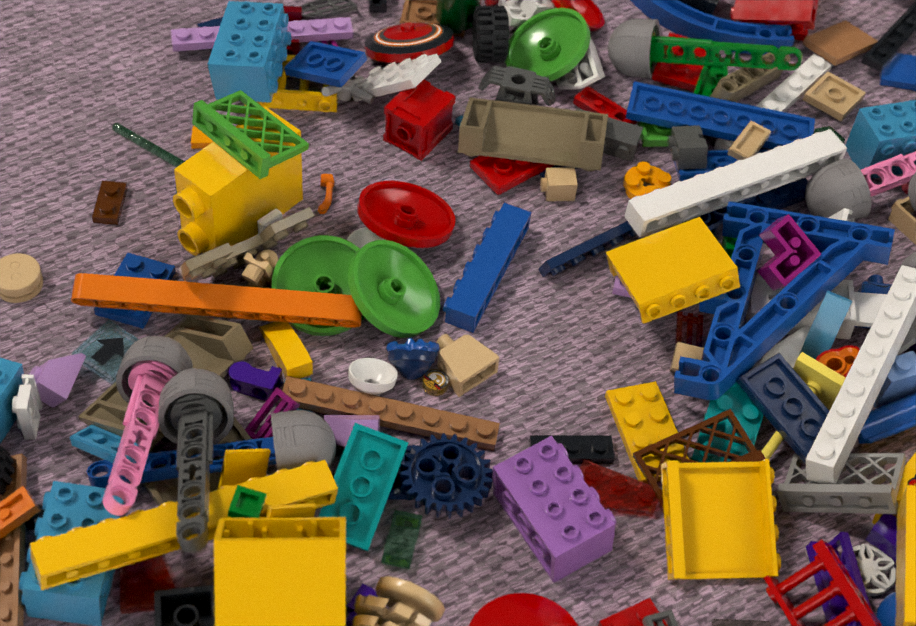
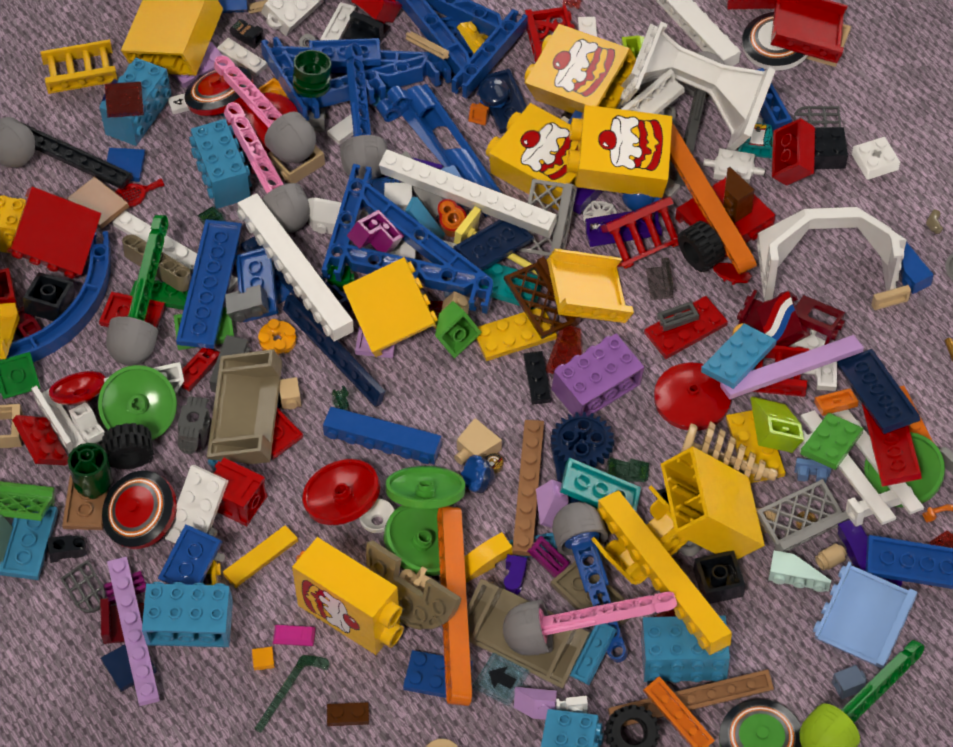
camera: 90 degrees left, 5 degrees up
(195, 414) = (563, 591): dark grey piece -> none
(237, 140) = (341, 575): bright green fence -> none
(246, 503) = (651, 530): green plate -> none
(338, 146) = (260, 556): none -> yellow tile
(372, 376) = (499, 492): white piece -> none
(542, 227) = (339, 398): none -> clear green plate
(644, 349) = (455, 329): none -> bright green slope
(749, 141) = (241, 261): tan tile -> none
(834, 96) = (163, 204): tan plate -> none
(860, 83) = (143, 189): none -> red piece

